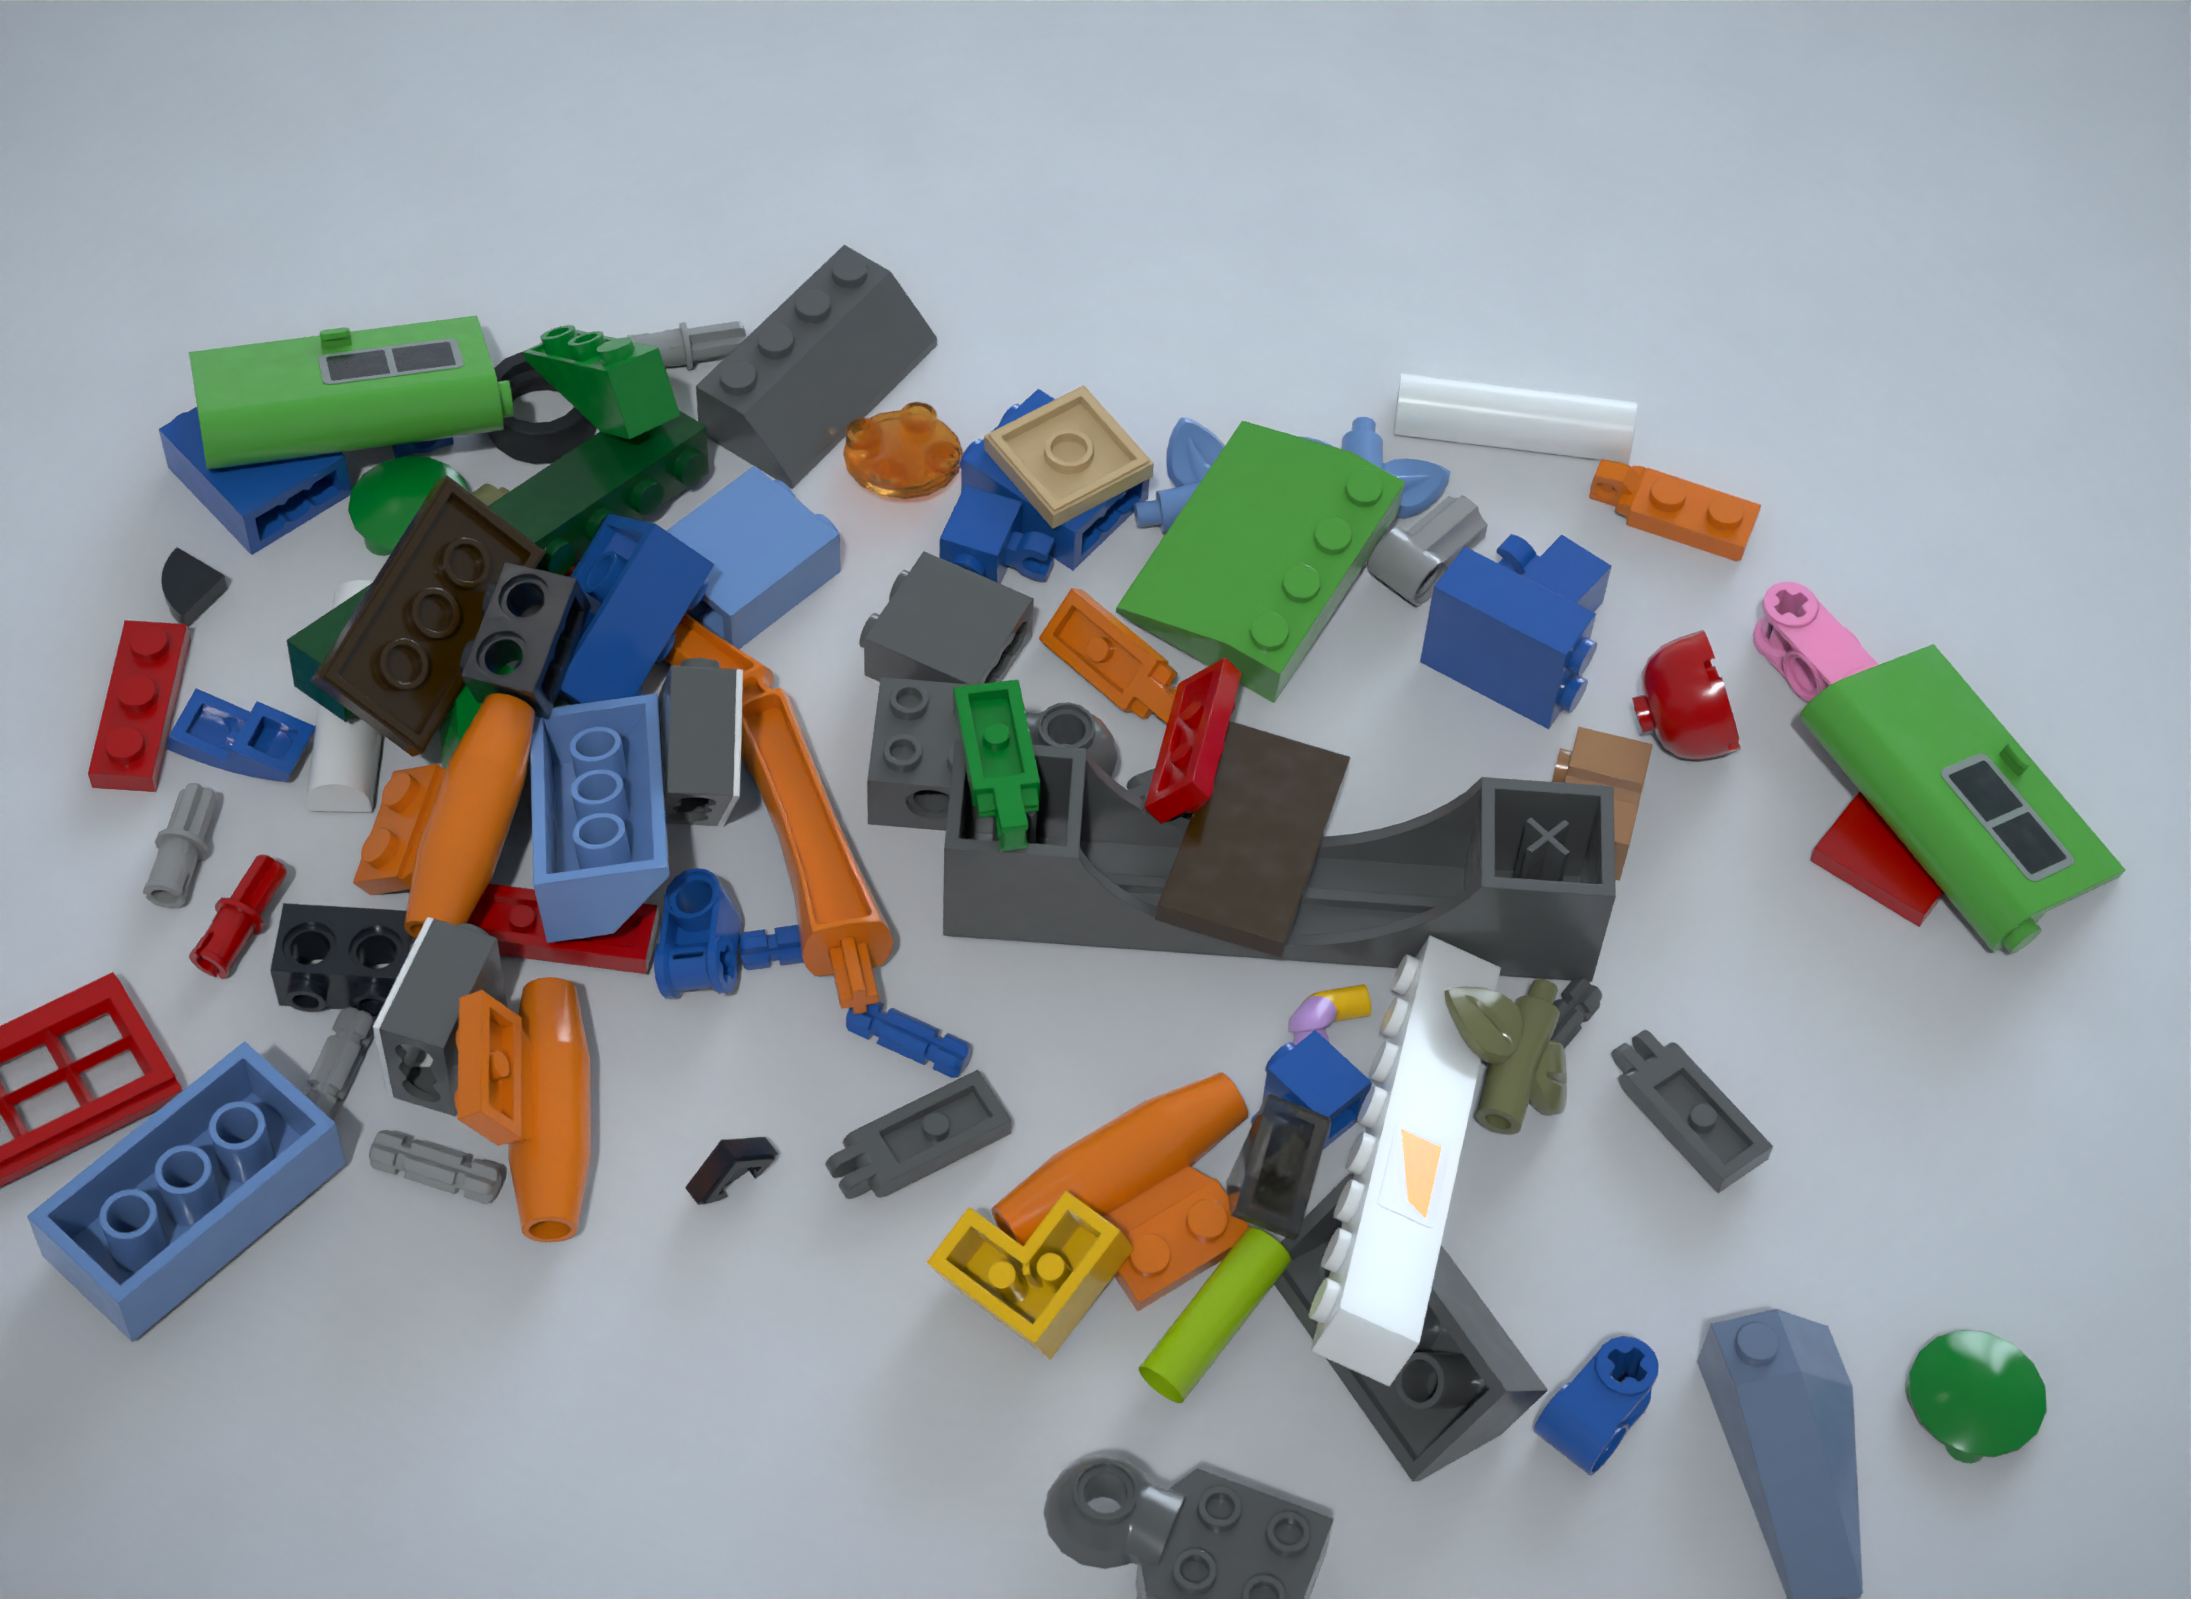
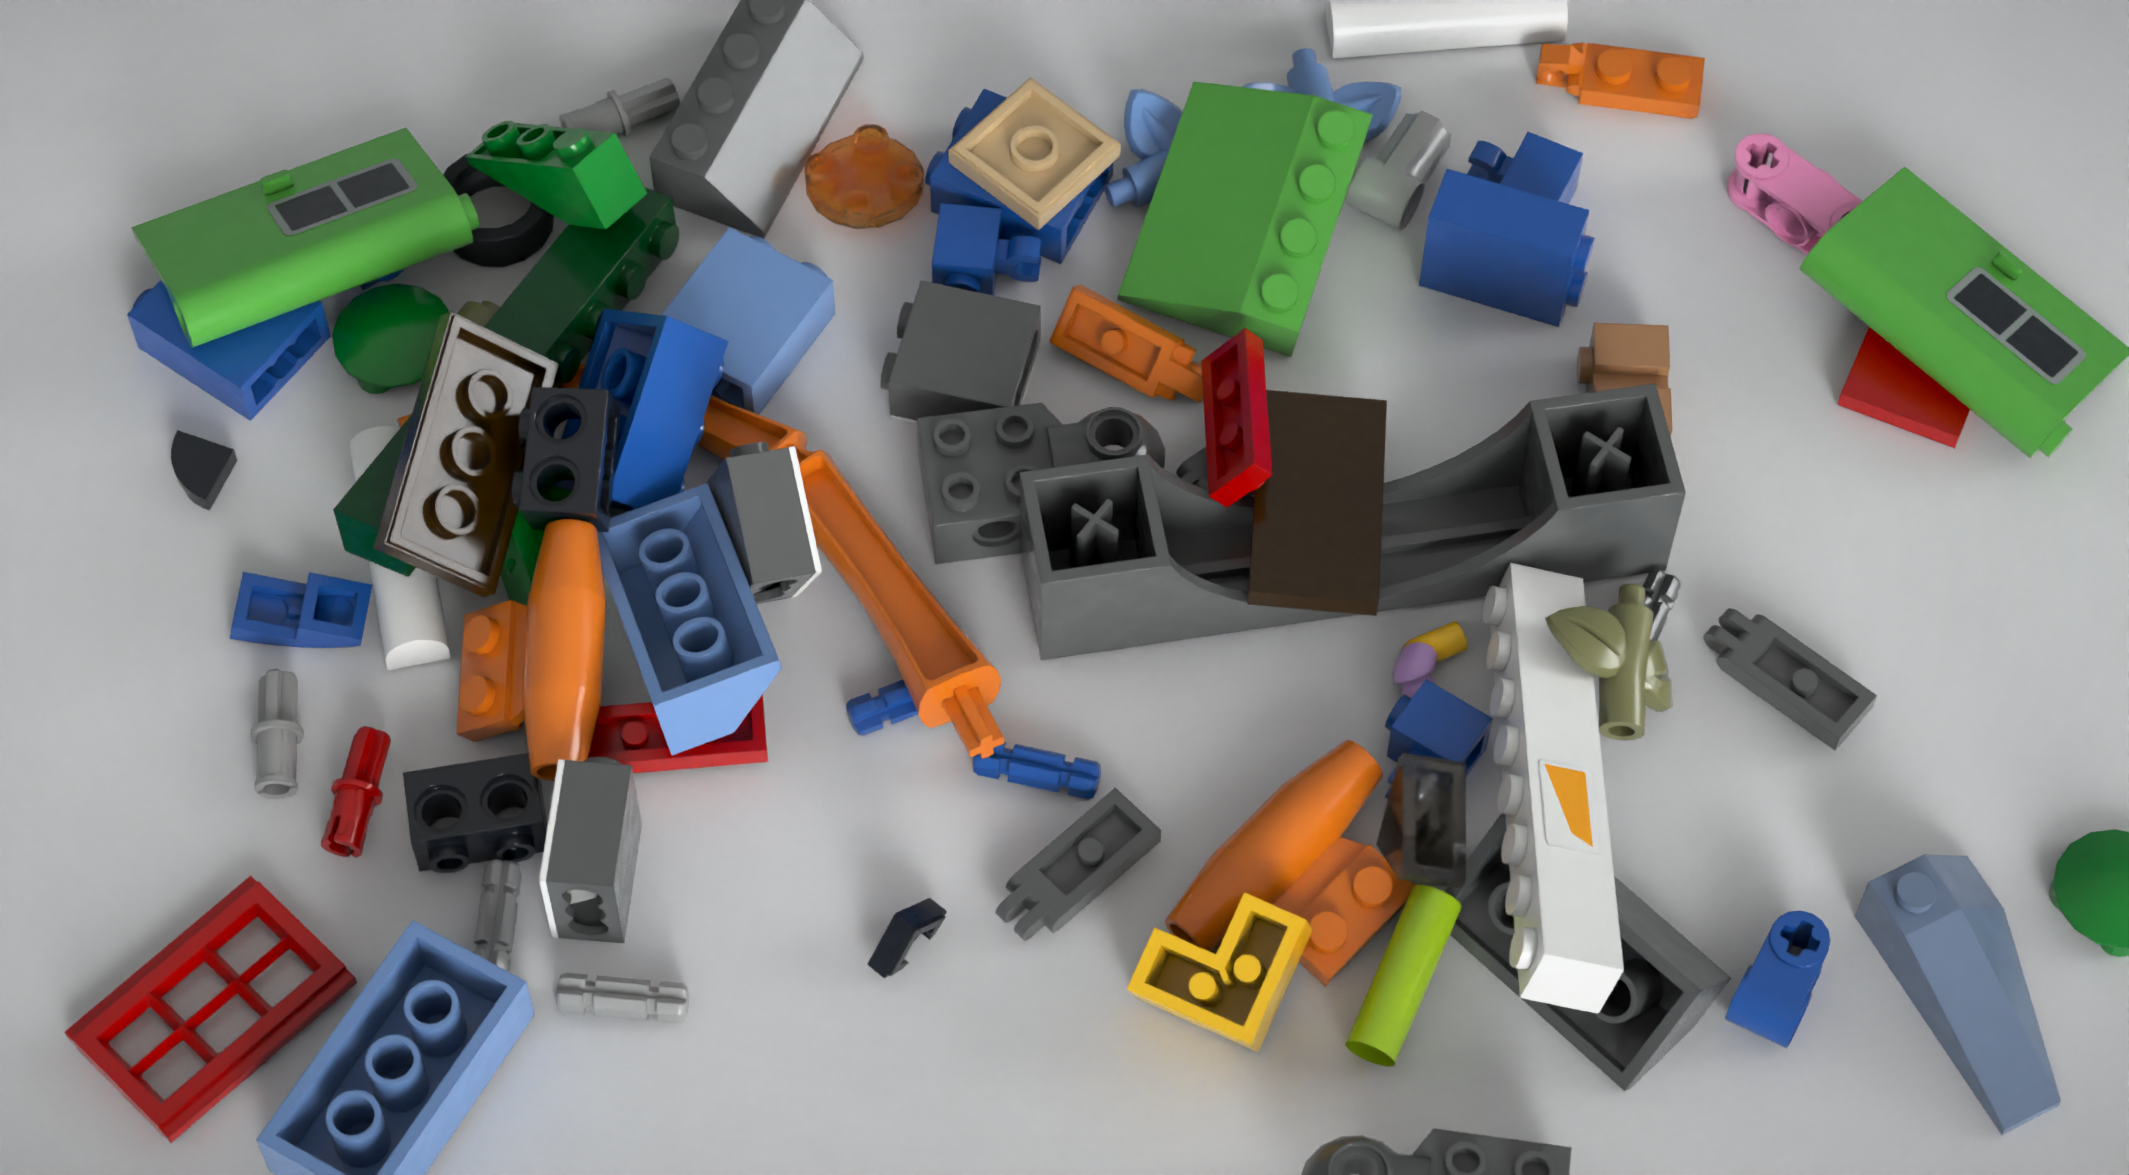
camera: 10 degrees left, 5 degrees up
(139, 706) = (190, 600): red plate -> none
(531, 1089) = (703, 912): orange plate -> none
(697, 936) = (811, 726): blue piece -> none
(998, 757) = (1070, 483): green hinge -> none
(1686, 700) = (1689, 273): red cylinder -> none

